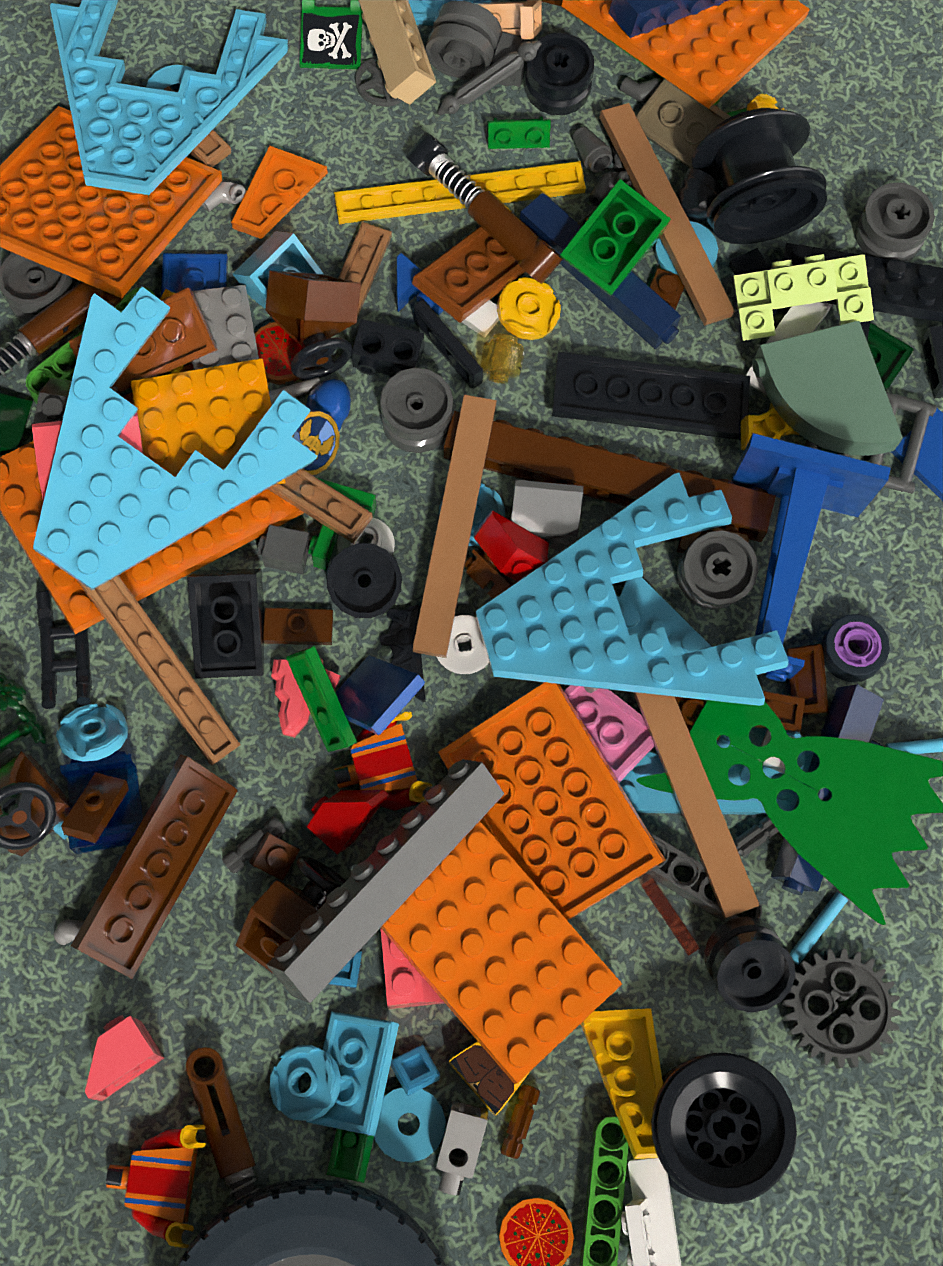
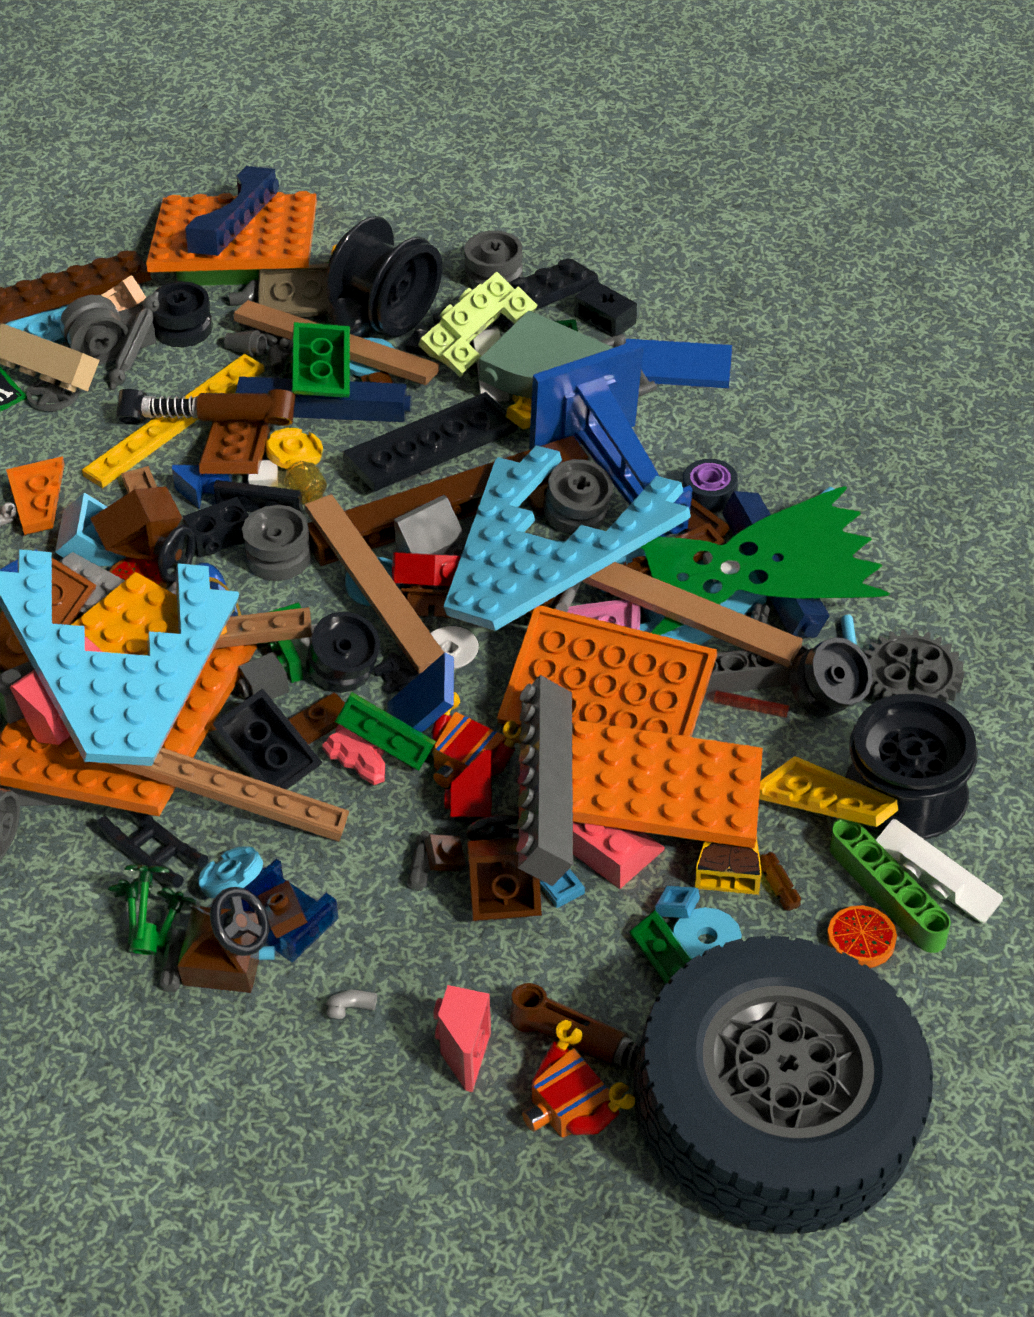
camera: 35 degrees left, 25 degrees down
(155, 867) = (366, 914): reddish brown plate -> none
(324, 1083) = (620, 977): medium azure tile -> none
(364, 1056) = (637, 931): medium azure tile -> none
(463, 1131) = (753, 904): light grey torso -> none
(518, 133) = (184, 363): green hinge -> none

